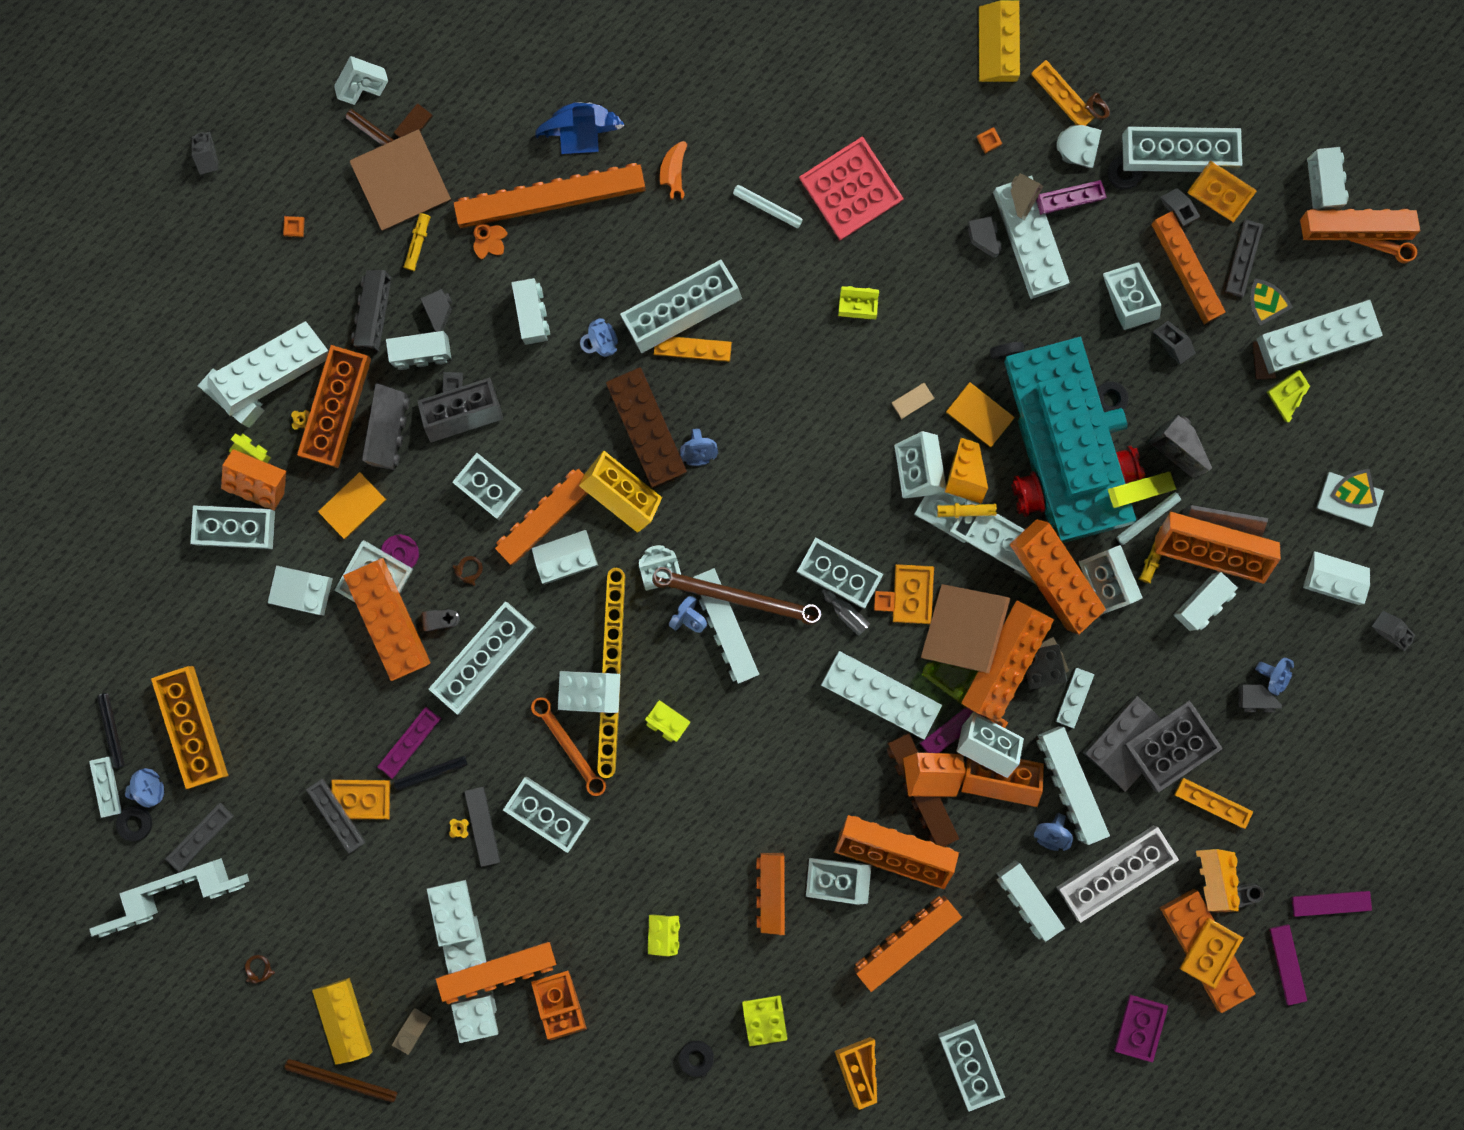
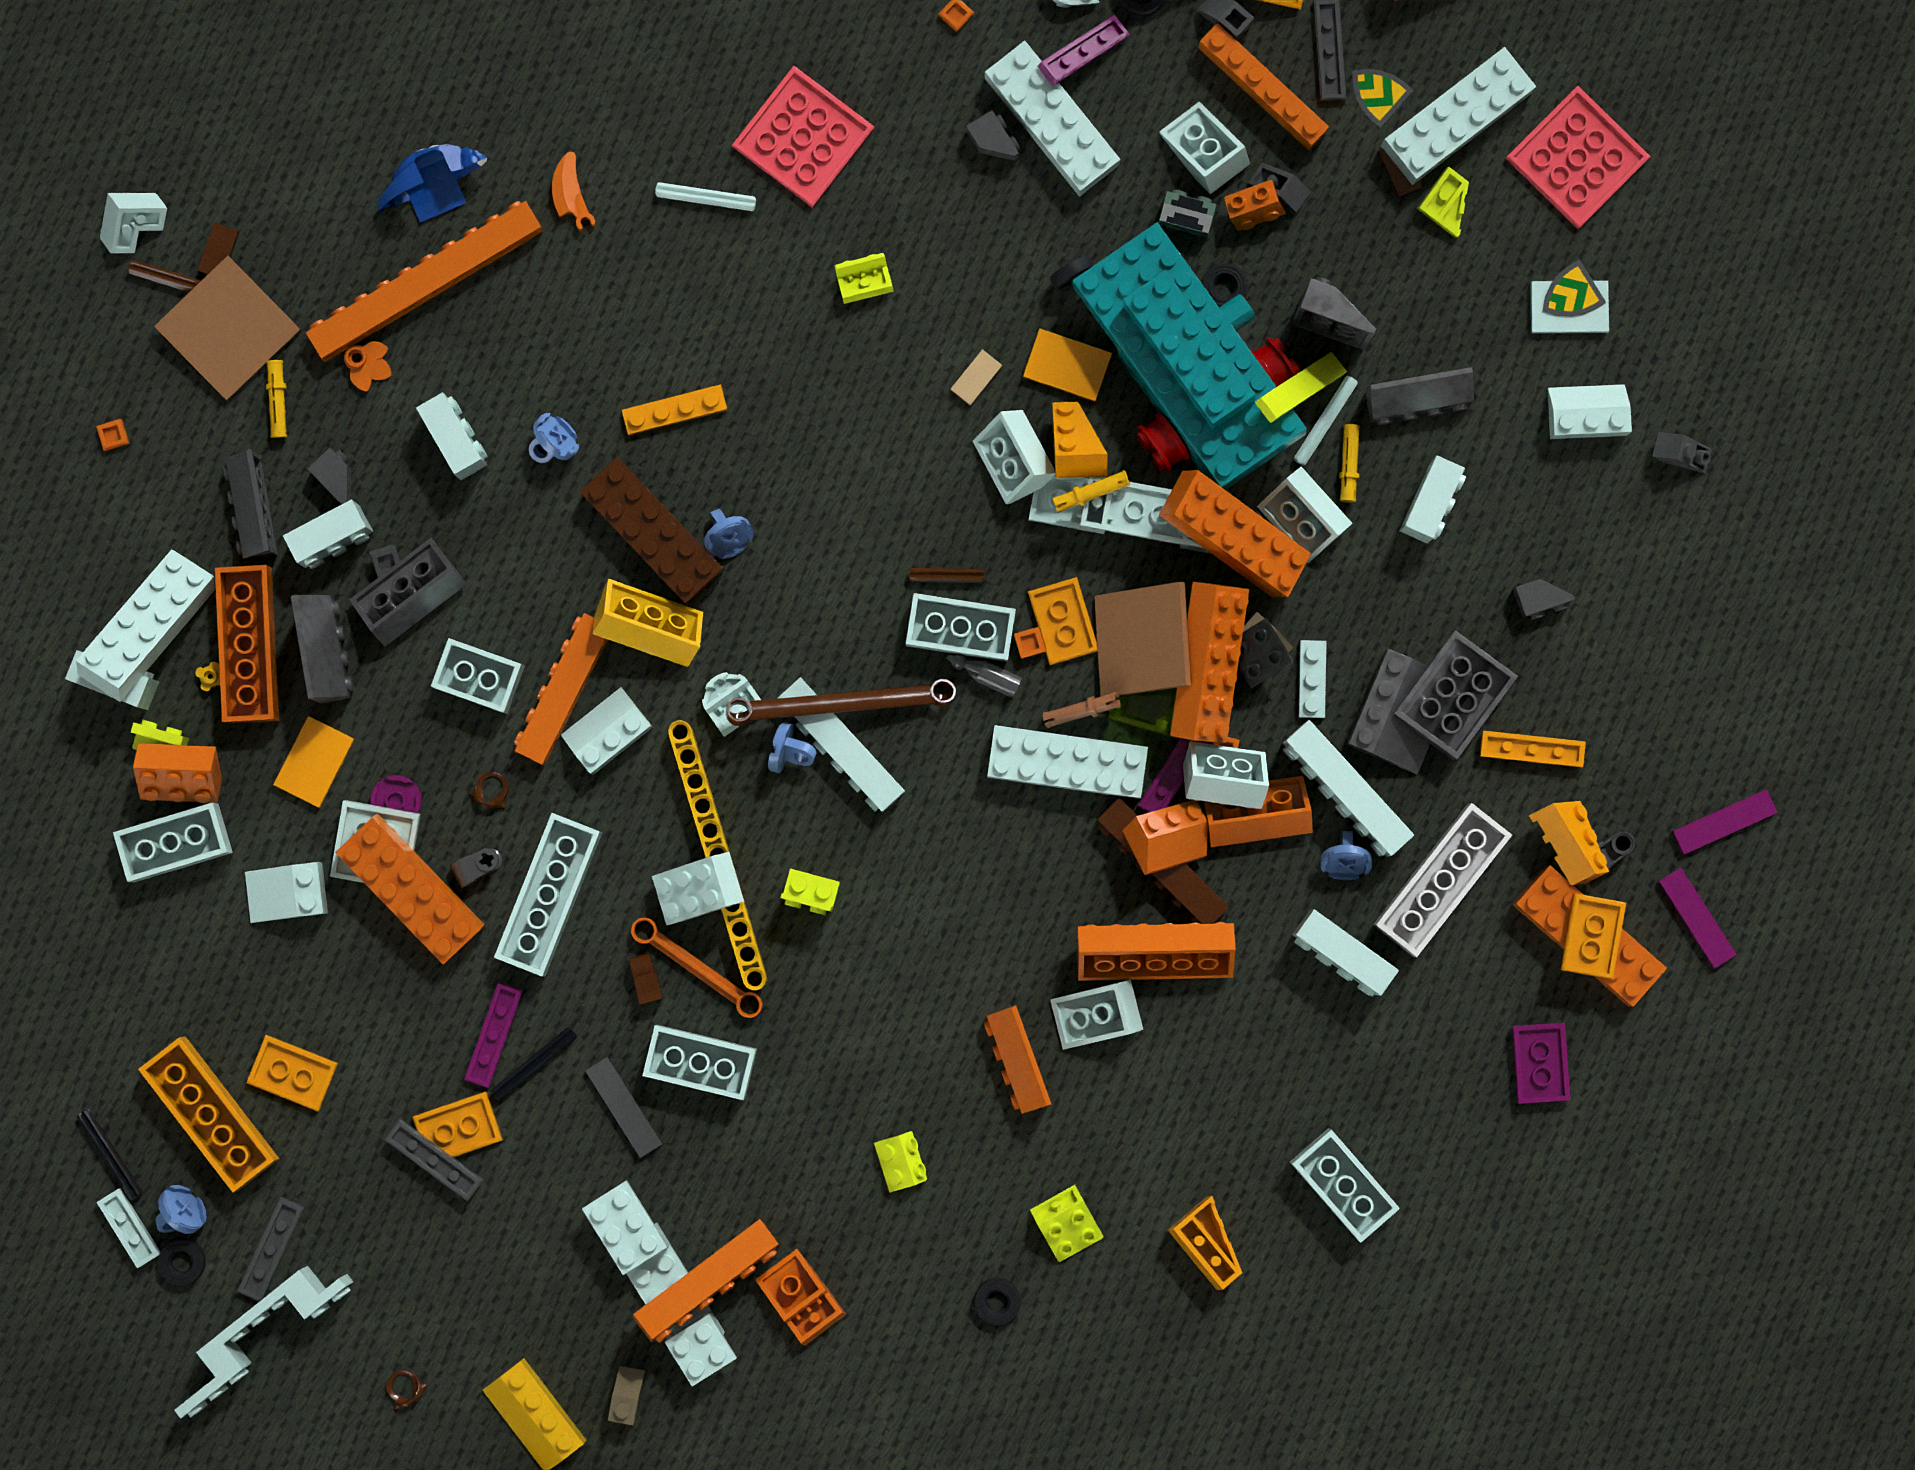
camera: 20 degrees left, 0 degrees up
(258, 718) = (292, 1073): none -> light orange tile
(458, 823) = (601, 1124): yellow plate -> none
(530, 742) = (645, 979): none -> reddish brown leg
(681, 306) = (641, 361): light aqua brick -> none
(842, 532) = (946, 575): none -> reddish brown axle
(904, 661) = (1092, 706): none -> nougat pin
(907, 943) = (1210, 1060): orange brick -> none
(1024, 194) = (1023, 68): dark tan slope -> none
(1103, 338) = (1187, 213): none -> brick
(1152, 349) = (1254, 206): none -> orange bracket
(1217, 547) = (1422, 426): orange brick -> none
(1278, 675) = (1557, 559): medium blue tile -> none
(1393, 396) = (1577, 157): none -> coral tile

